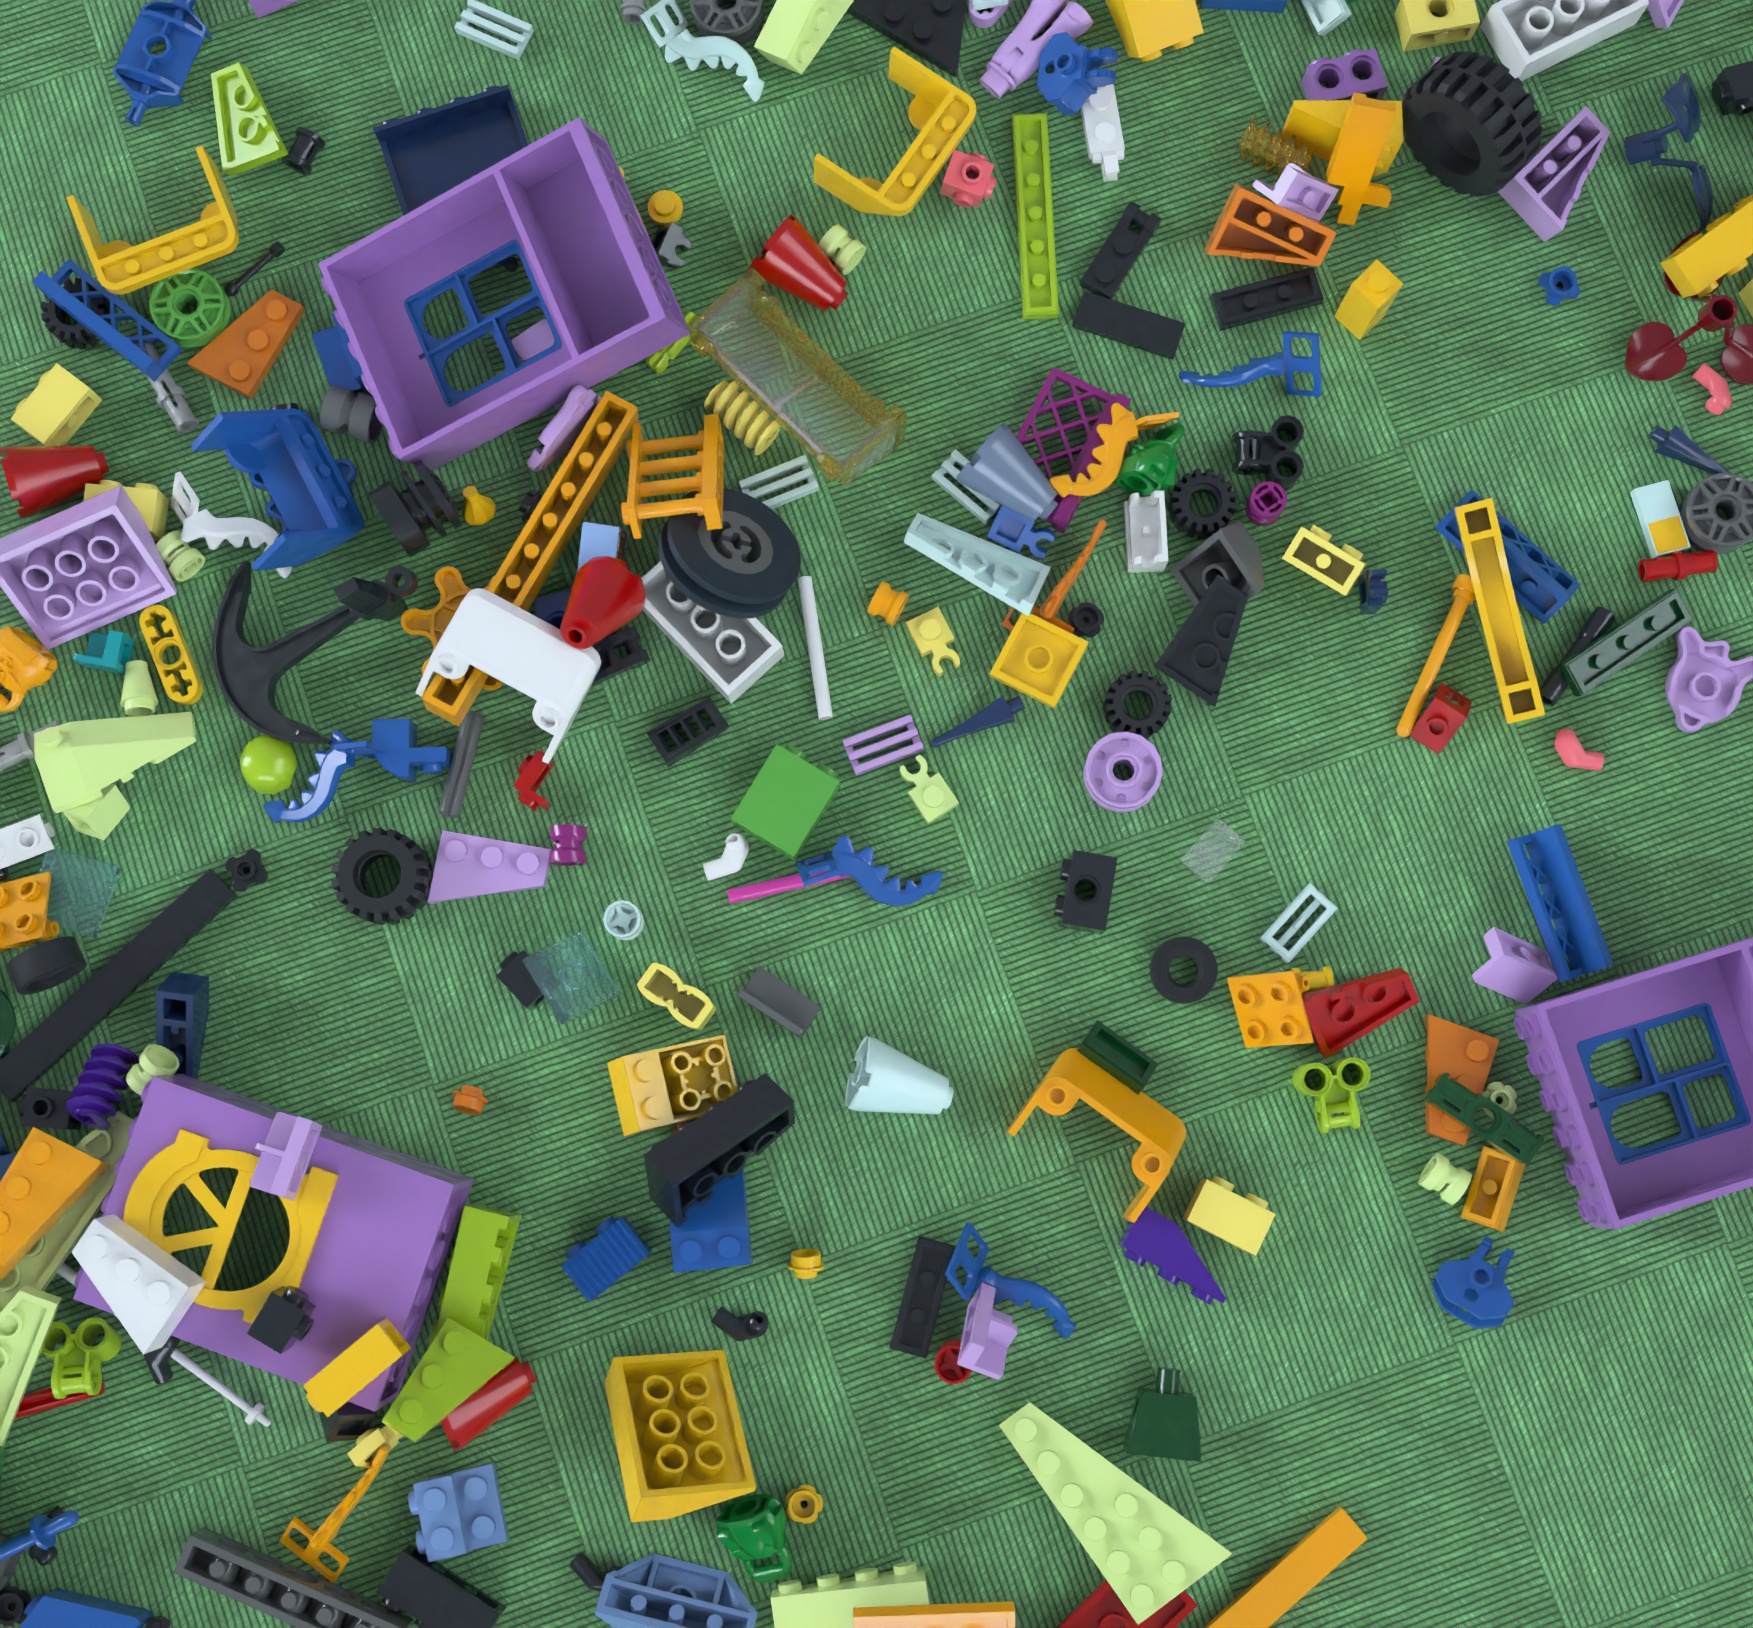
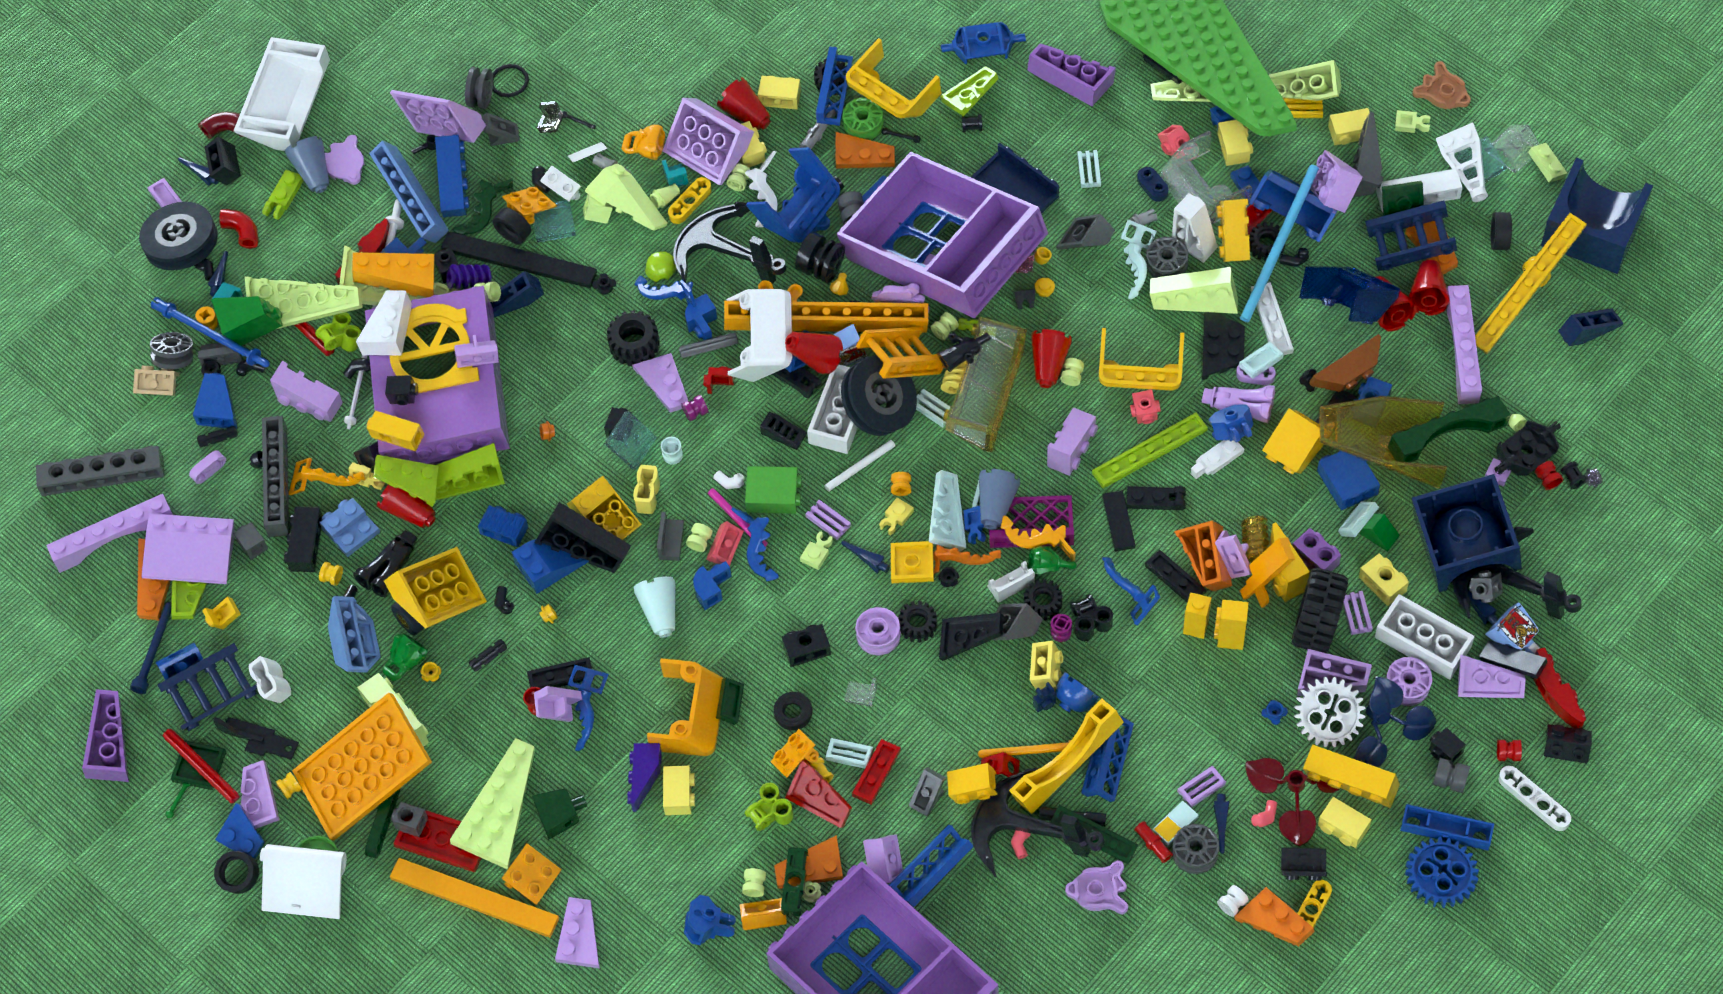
camera: 65 degrees right, 20 degrees down
(163, 1470) = (305, 395): none -> lavender wedge
(235, 1614) = (256, 459): none -> black hinge
(532, 1586) = (330, 573): none -> yellow wheel
(554, 1460) = (386, 564): none -> black piece
(612, 93) = (1087, 232): none -> dark grey slope
(648, 391) = (944, 326): none -> yellowish green wheel
(730, 391) = (963, 351): none -> black piece
(799, 951) = (699, 537): none -> yellowish green wheel
(824, 1396) = (487, 655): none -> black axle
(835, 924) = (725, 543): none -> coral slope
(898, 993) = (707, 584): none -> blue brick
(963, 315) = (1071, 441): none -> lavender wedge
(1250, 1516) = (531, 874): none -> light orange hinge
(1355, 900) = (876, 771): none -> red plate
(1389, 1493) = (577, 937): none -> lavender wing
(1392, 543) = (1074, 695): none -> blue cylinder
(1408, 251) = (1231, 624): none -> yellow wedge
(1432, 843) = (927, 791): none -> dark grey slope
(1460, 771) = (971, 783): none -> yellow hinge
(1520, 766) = (995, 815): none -> black piece
(1607, 456) = (1187, 796): none -> lavender tile
(1616, 208) = (1348, 719): none -> white gear
(1626, 62) = (1417, 672): none -> lavender wheel

